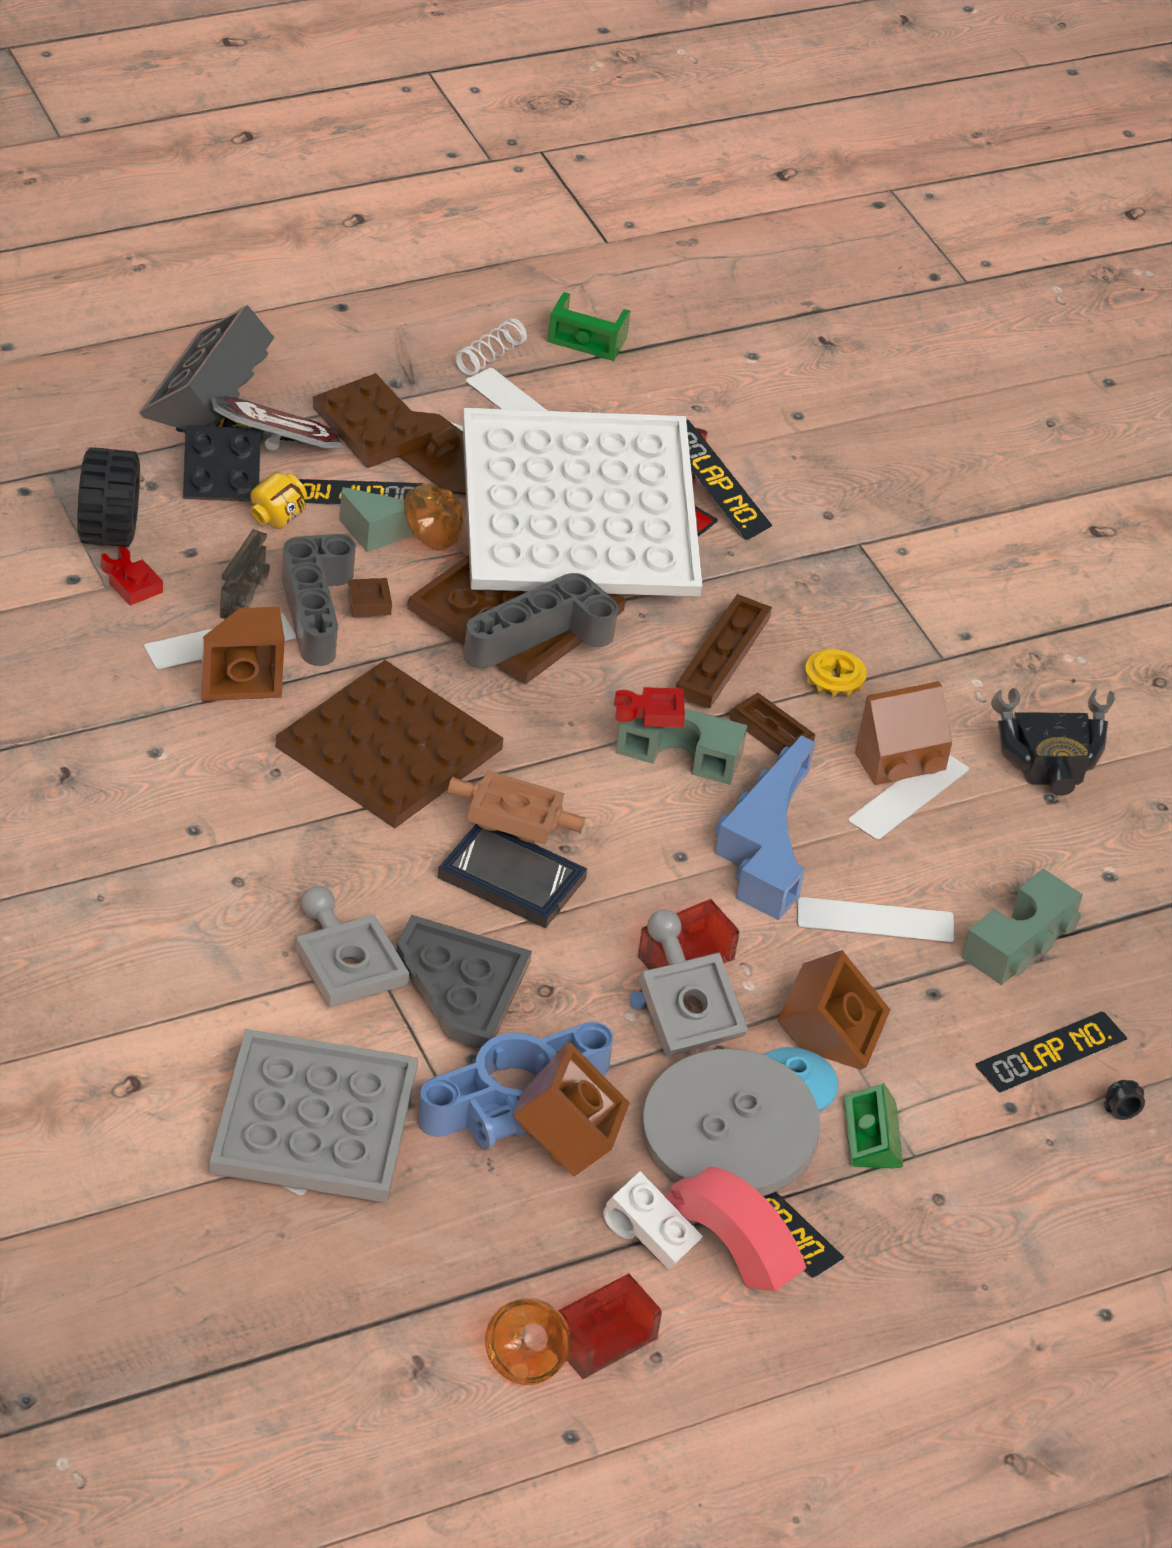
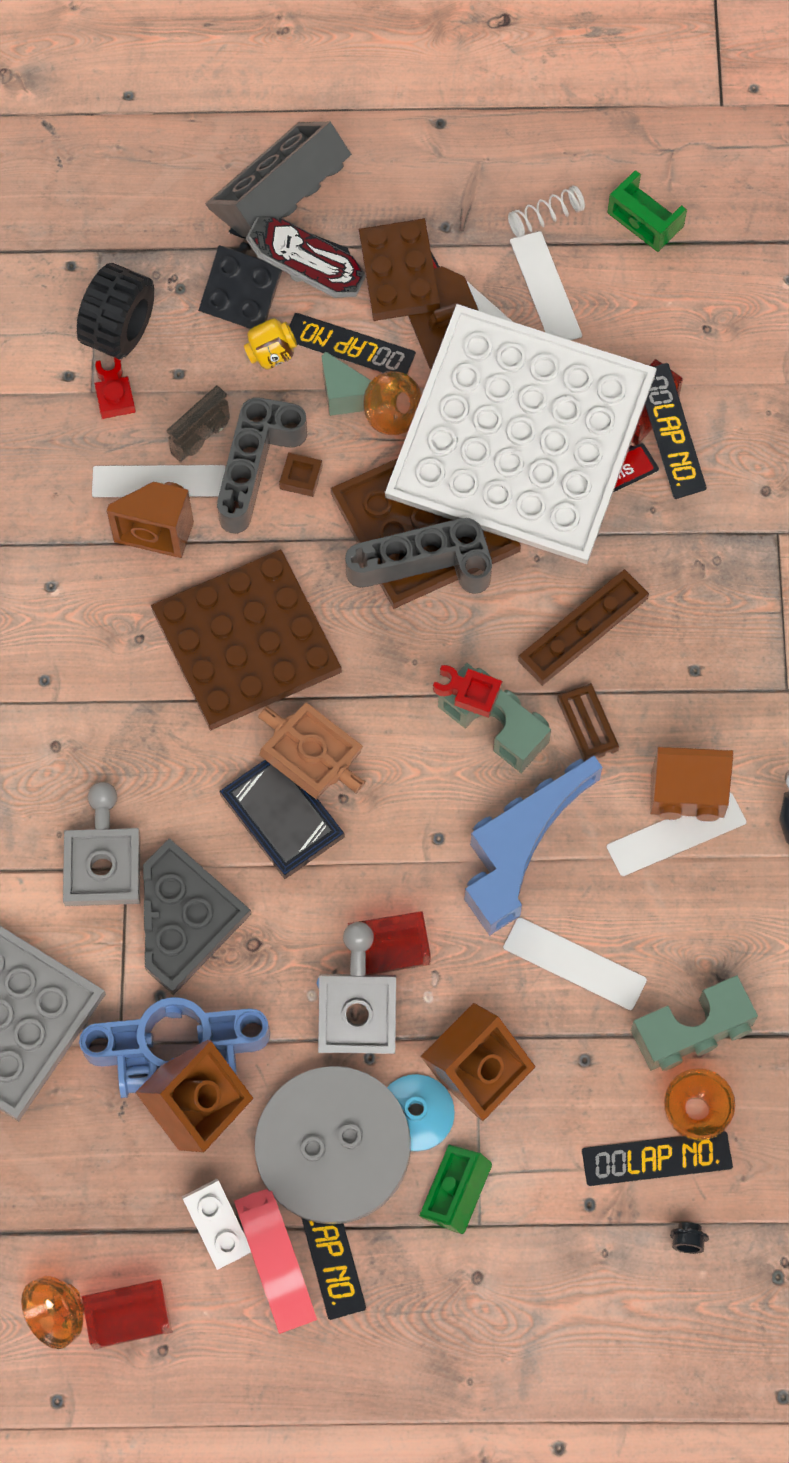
camera: 30 degrees right, 25 degrees up
(850, 669) = (669, 666): yellow gear -> none
(1071, 976) = (705, 1086): none -> clear orange piece

